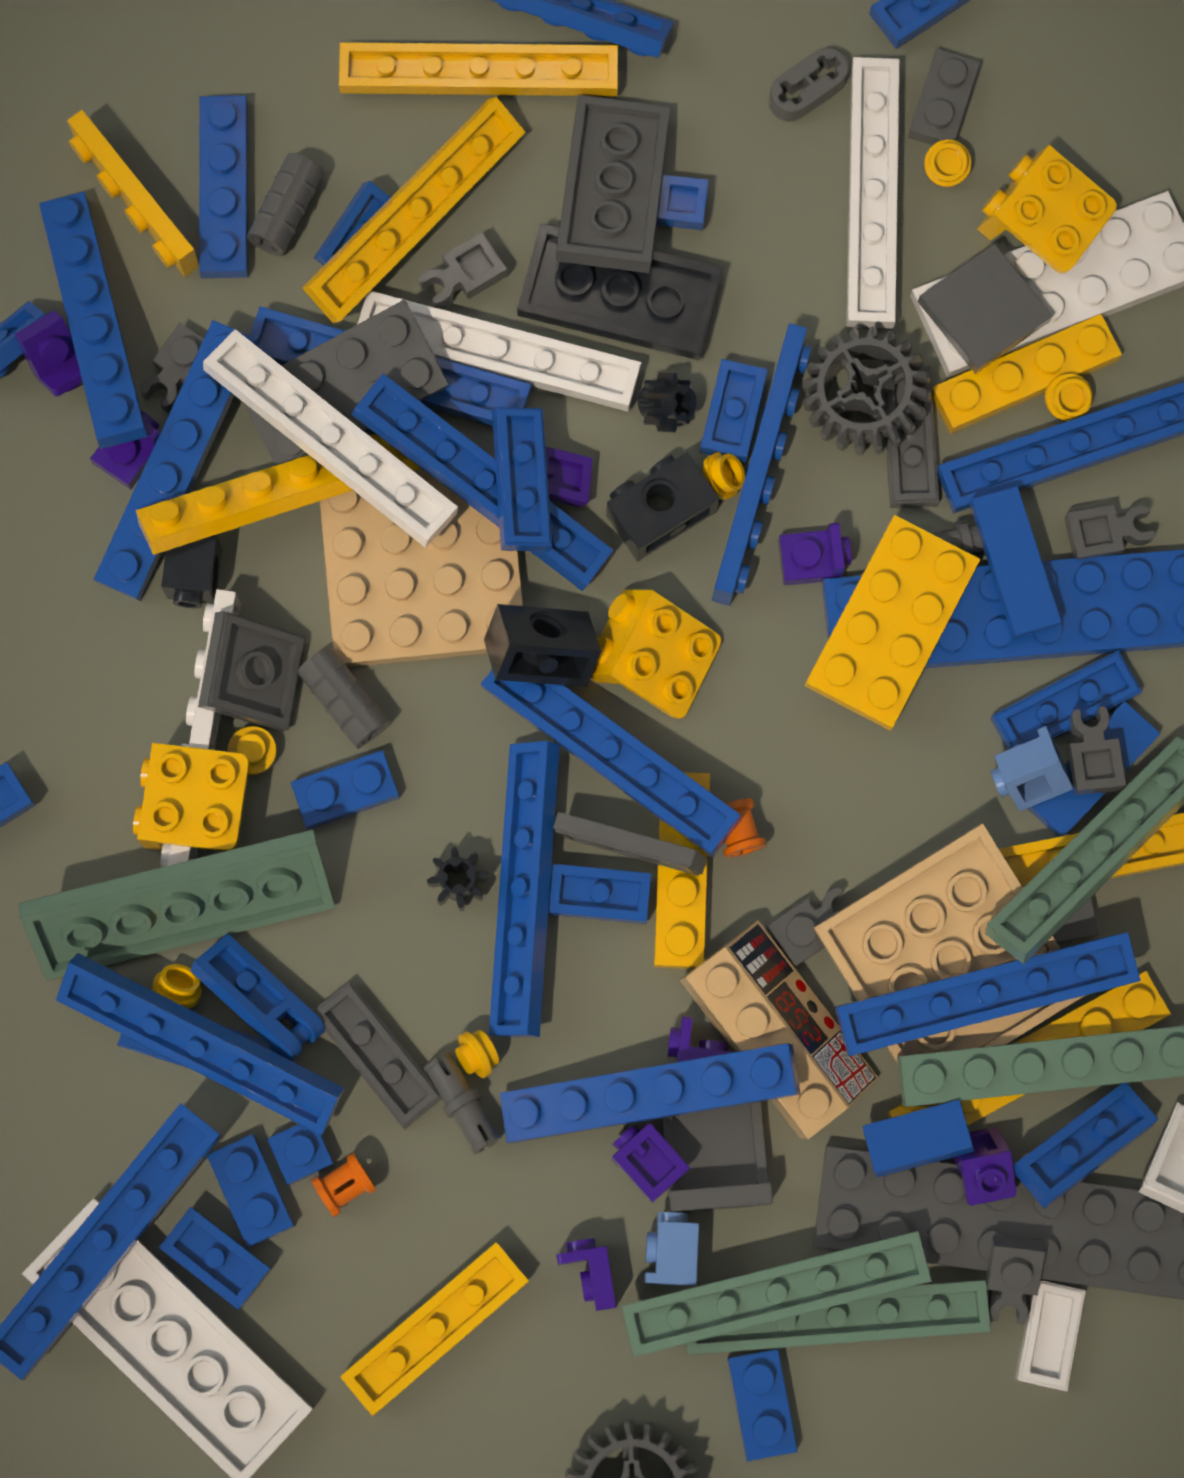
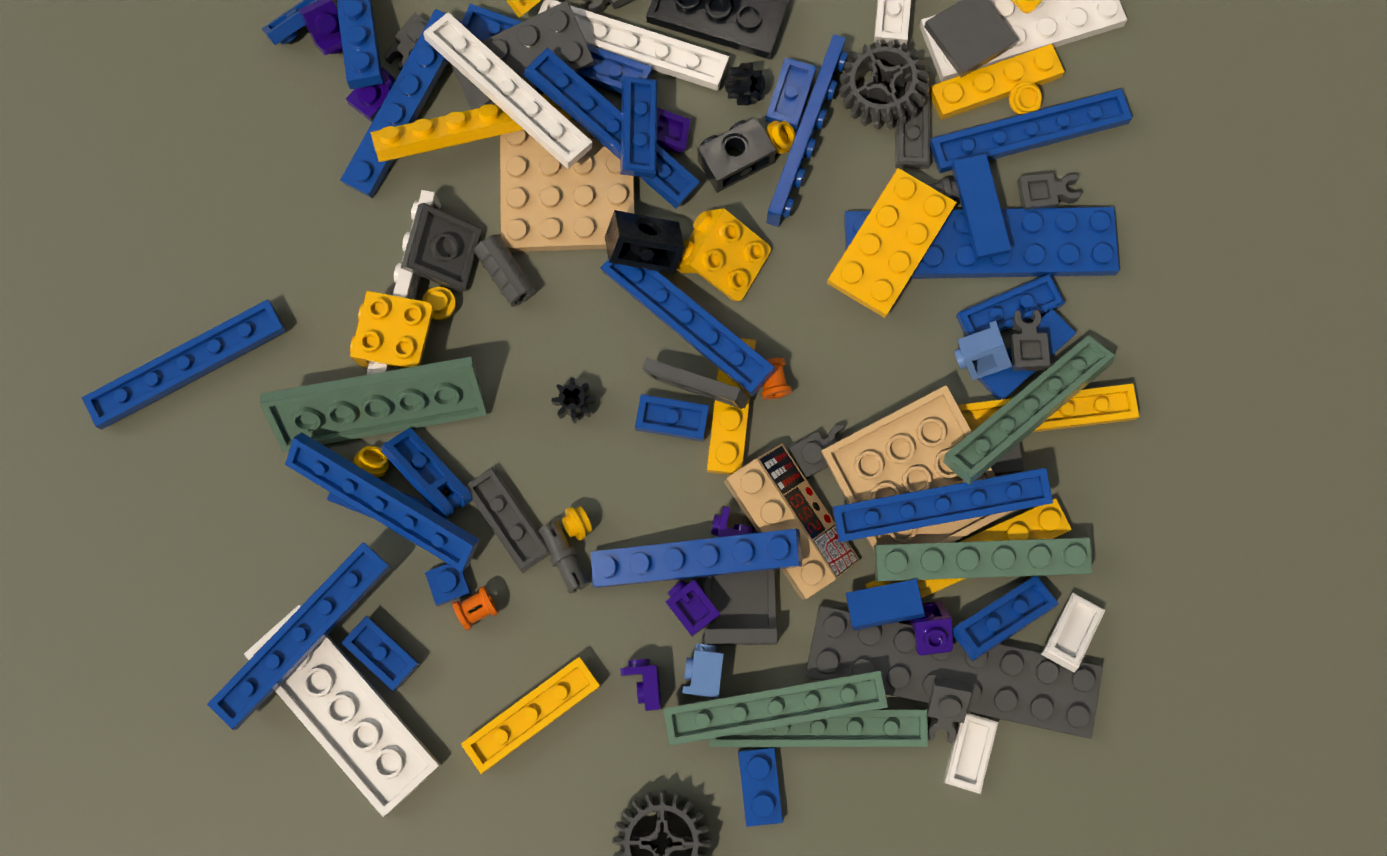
camera: 10 degrees right, 0 degrees up
(192, 573) = (407, 178): black brick -> none
(250, 1191) = (410, 608): blue plate -> none
(344, 790) = (500, 335): blue plate -> none
(524, 890) = (619, 412): blue plate -> none
(814, 555) = (839, 195): dark purple bracket -> none

